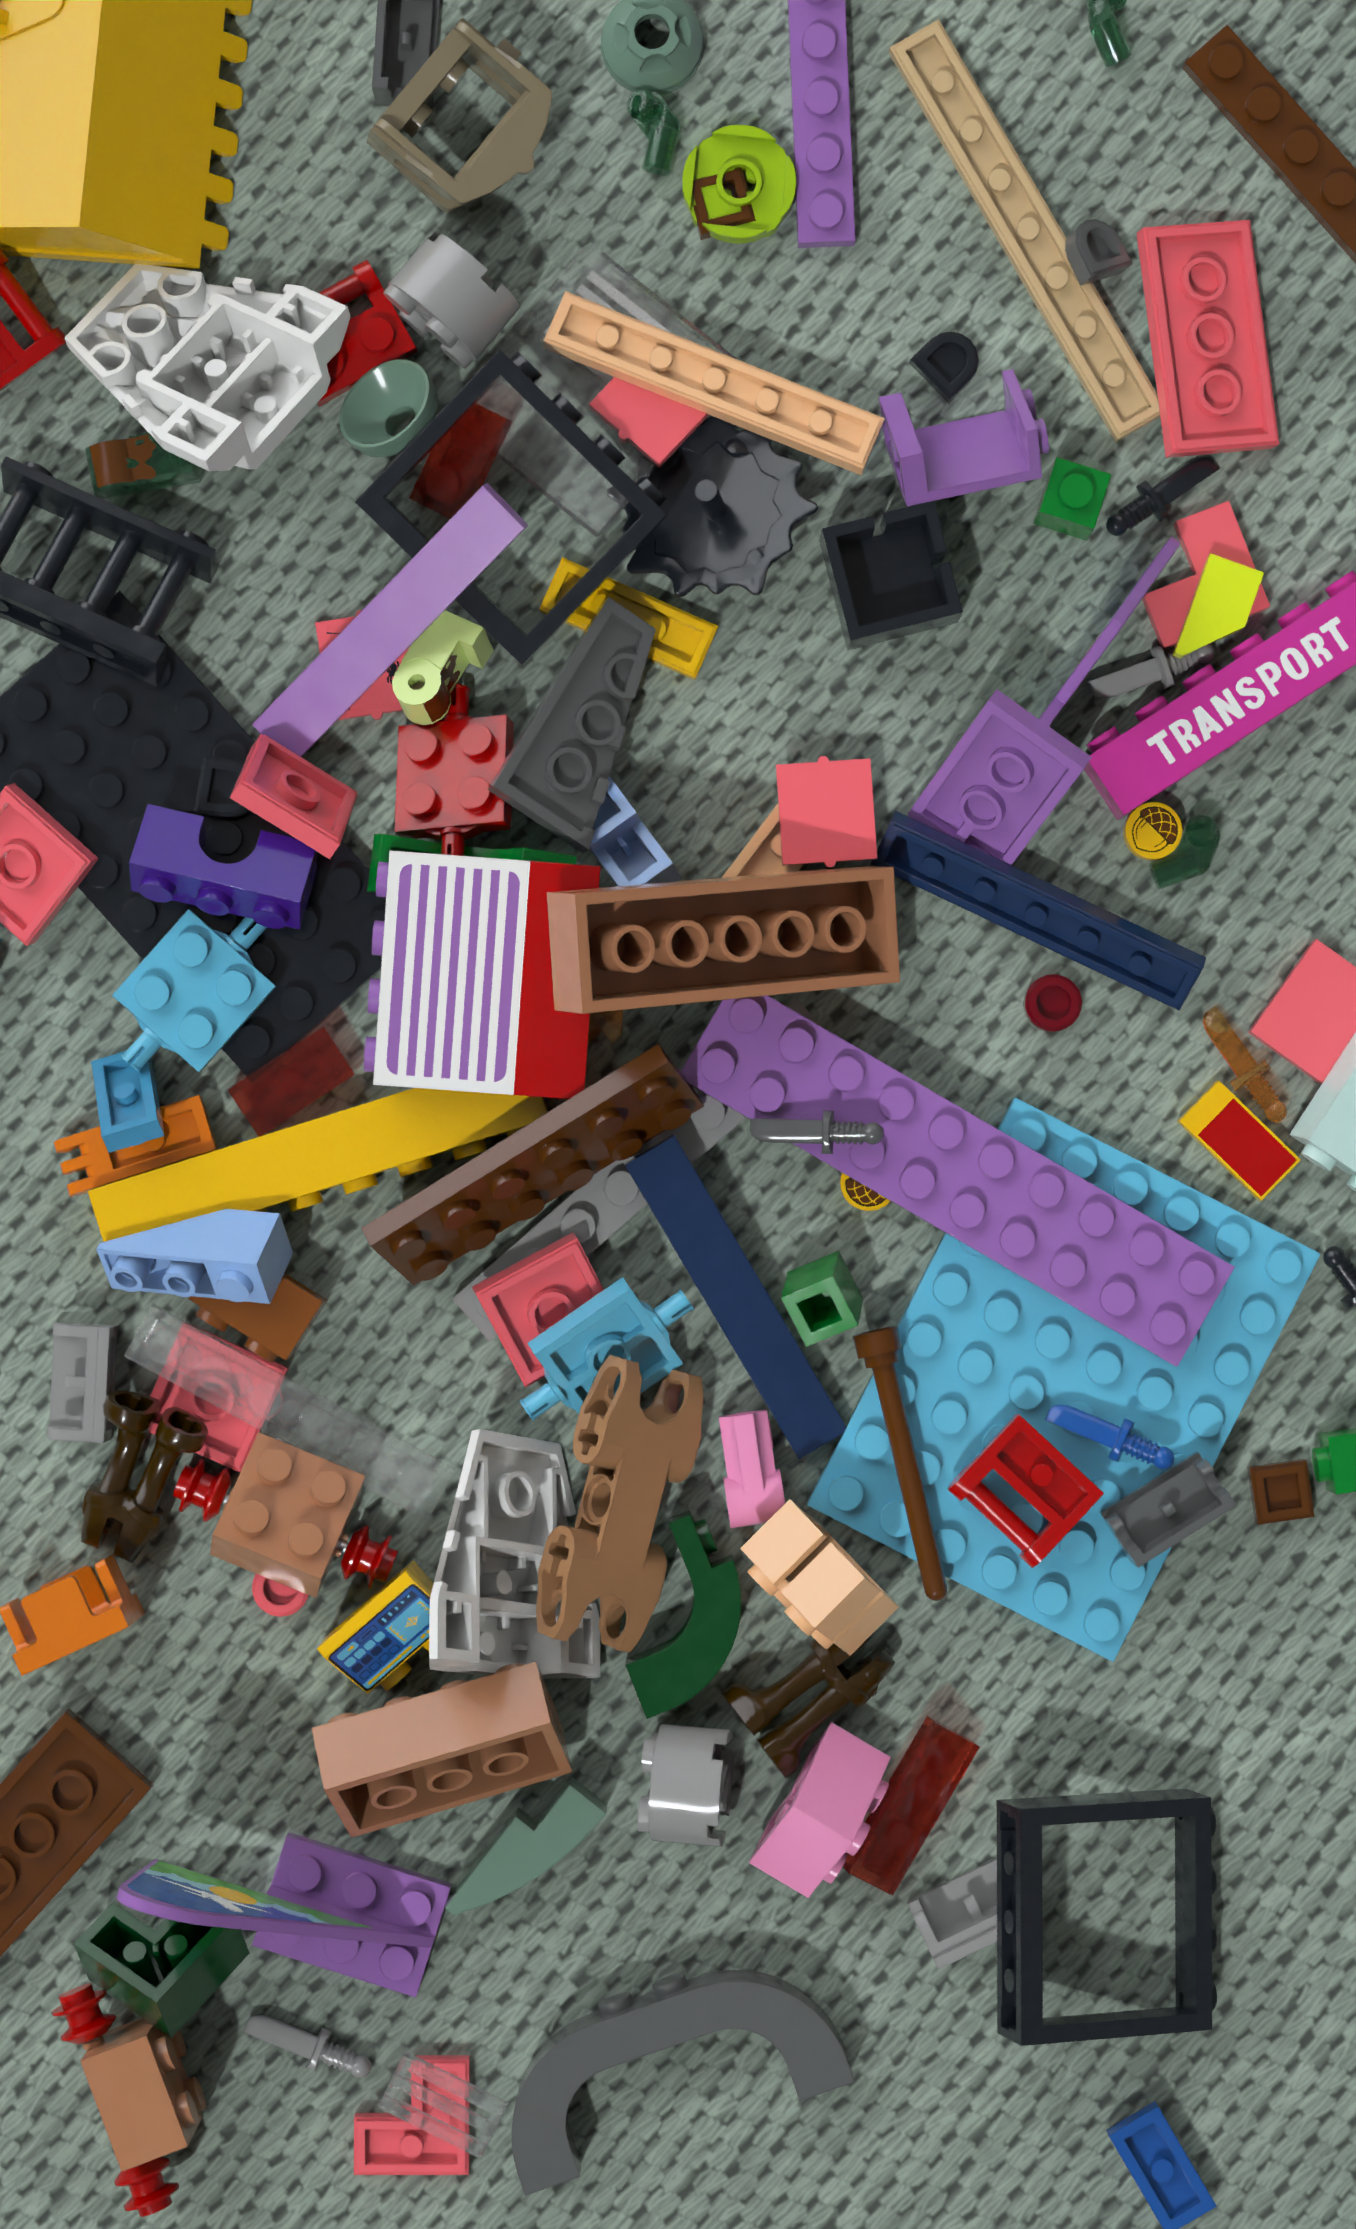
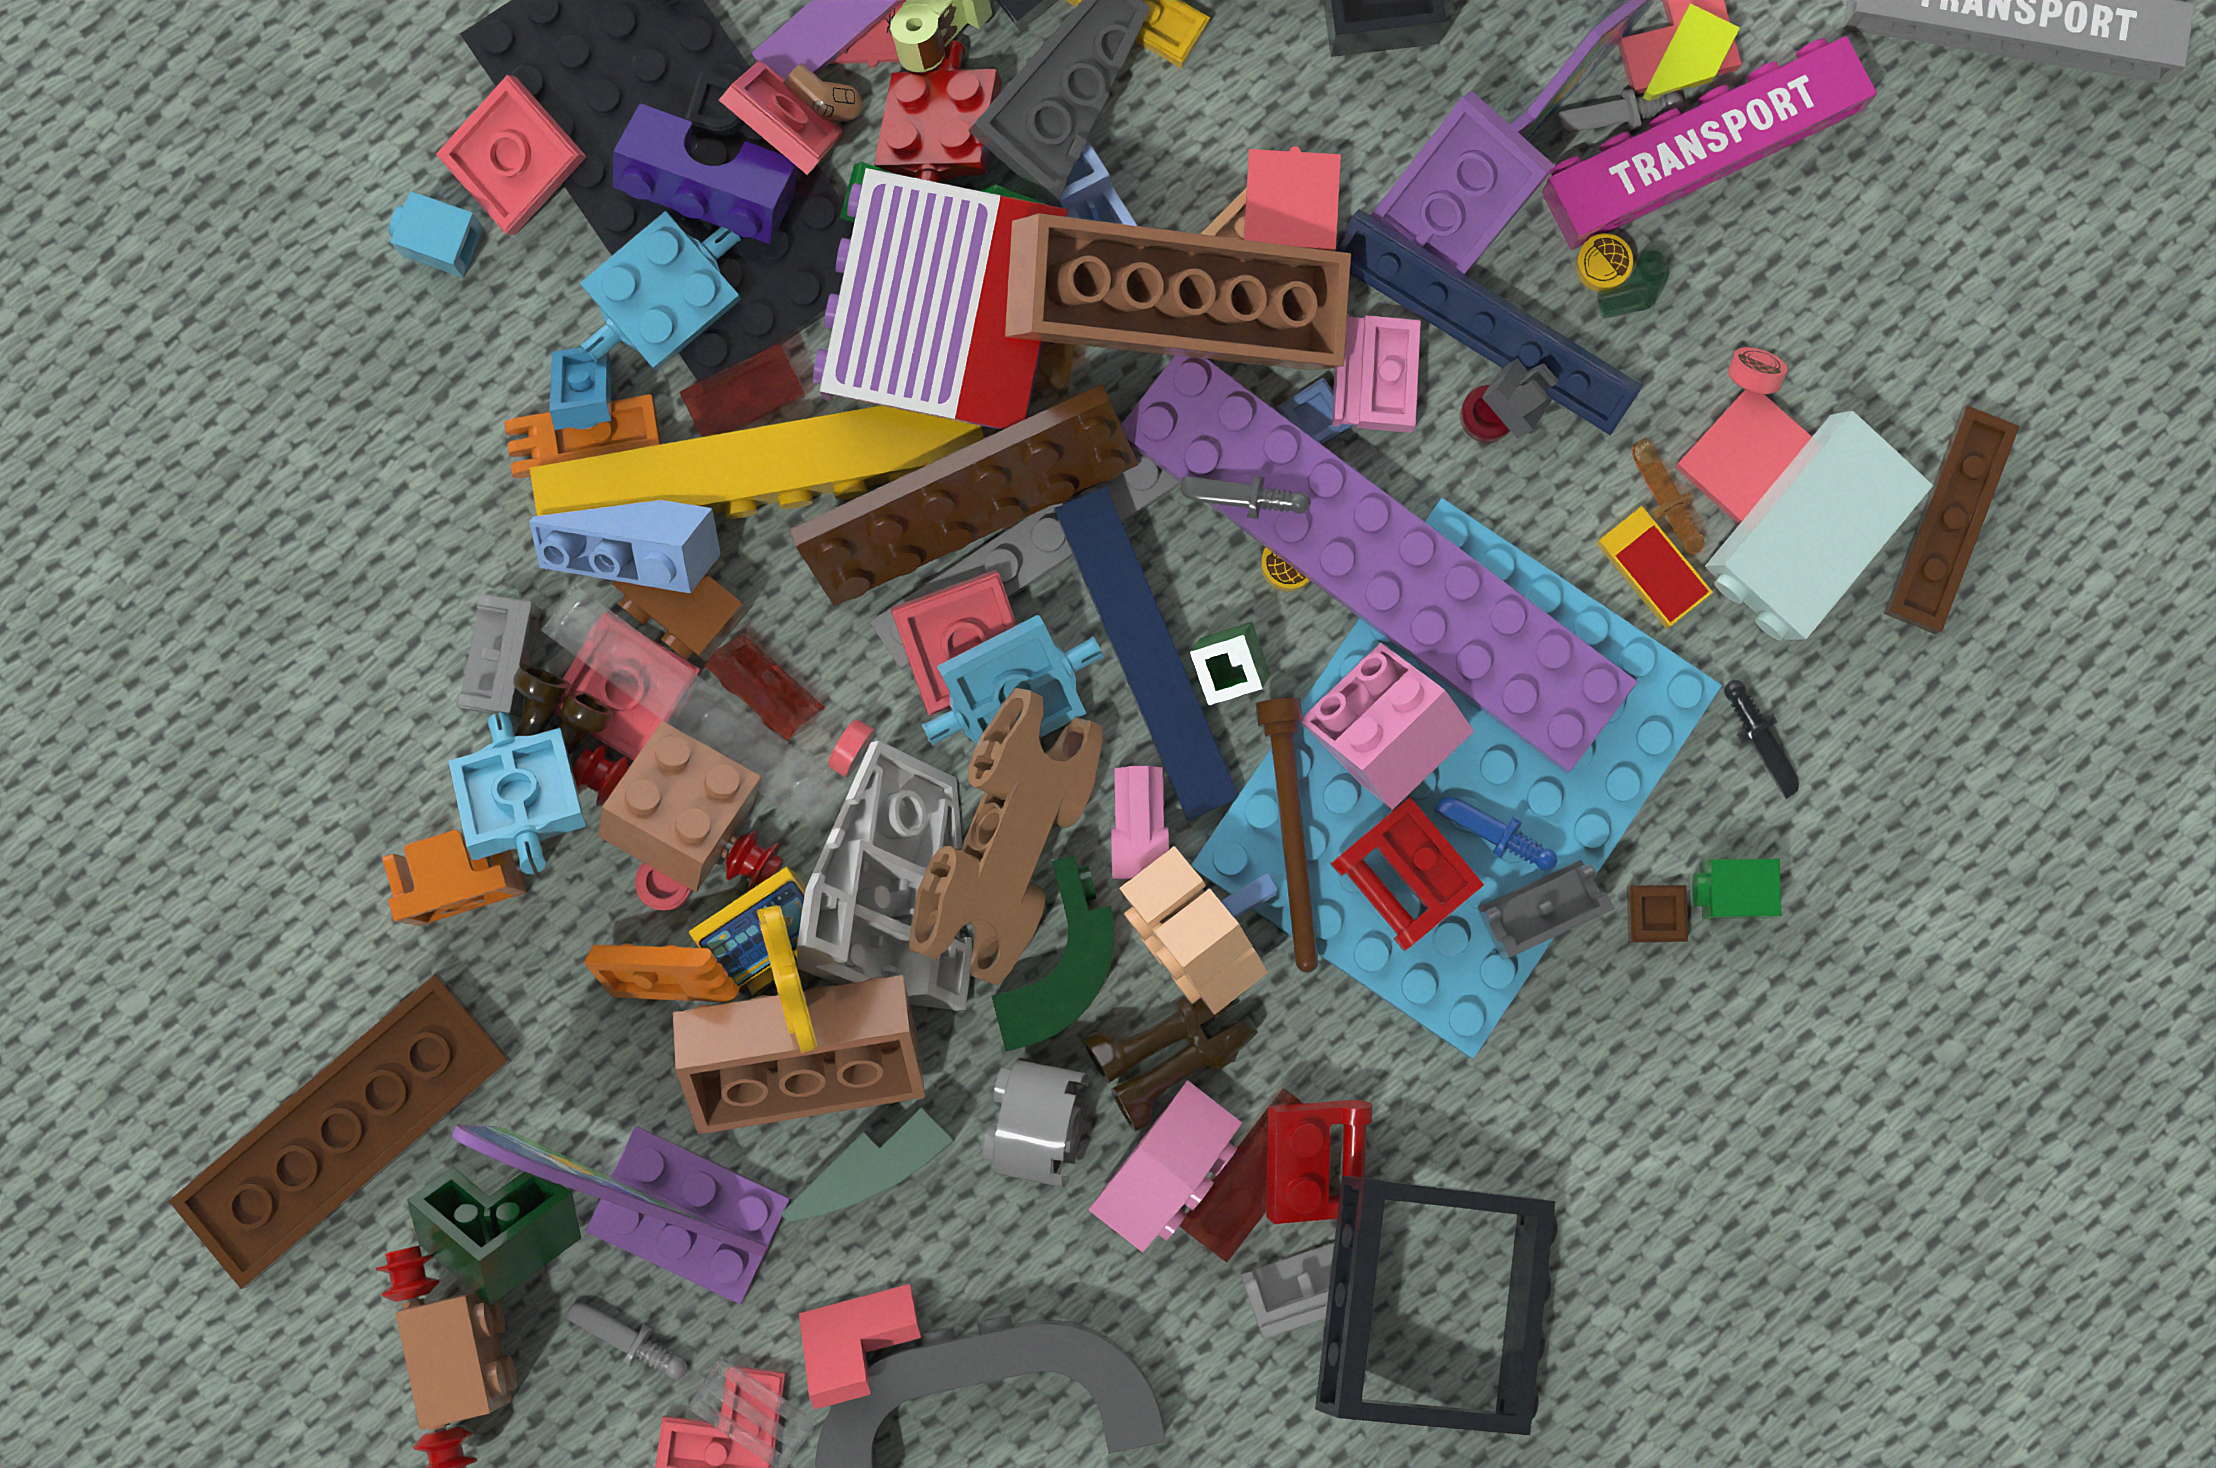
camera: 10 degrees right, 5 degrees down
(124, 1529) = (516, 793): none -> medium azure plate
(292, 1685) = (661, 973): none -> orange hinge
(335, 765) = (826, 99): none -> medium nougat arm
(355, 1379) = (764, 687): none -> clear red plate
(422, 1688) = (786, 977): none -> yellow tile
(451, 1430) = (851, 748): none -> coral tile
(520, 2015) = (842, 1334): none -> coral tile
(869, 1535) = (1250, 896): none -> medium blue tile
(877, 1026) = (1313, 412): none -> medium blue tile
(936, 980) = (1378, 374): none -> bright pink plate
(953, 1782) = (1301, 1157): none -> red plate
(988, 1343) = (1388, 725): none -> bright pink slope
(1082, 985) = (1520, 396): none -> dark grey tile
(1321, 926) = (1757, 370): none -> coral tile

